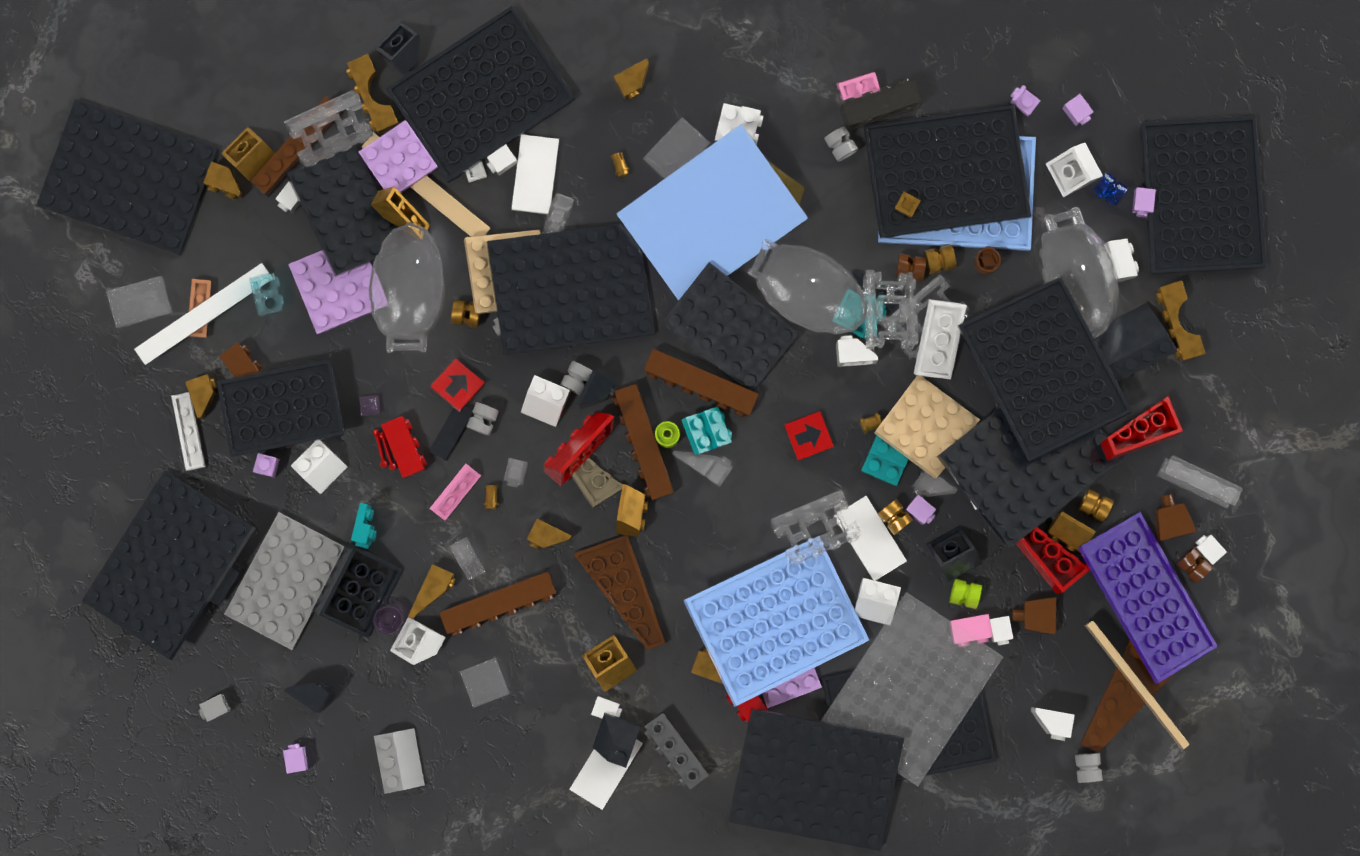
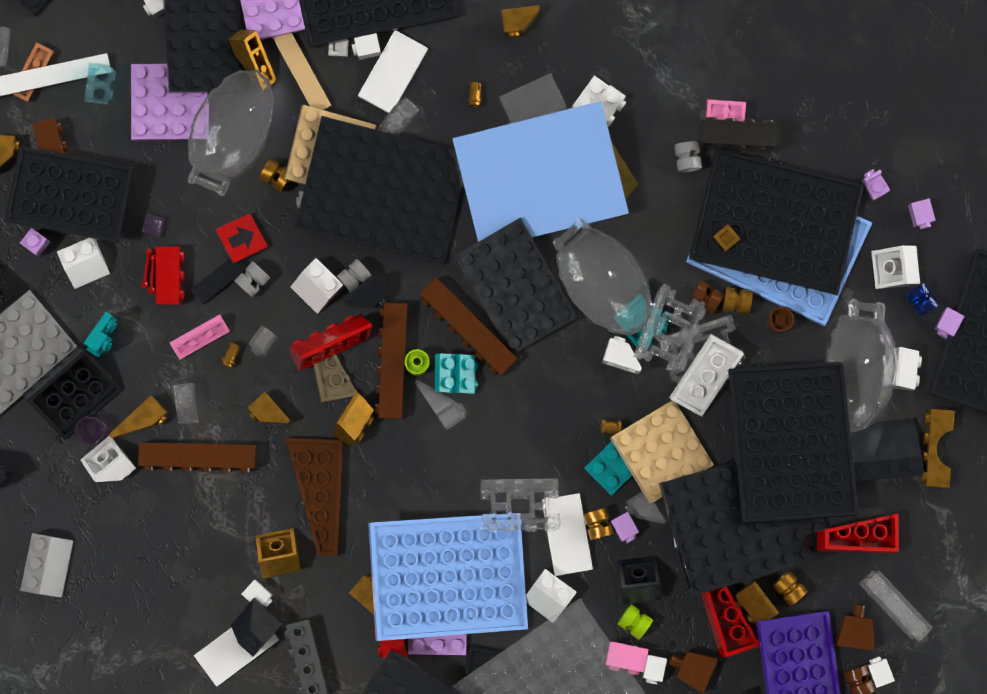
camera: 15 degrees right, 0 degrees up
(484, 682) = (155, 524): clear plate -> none
(808, 436) = (548, 416): red tile -> none

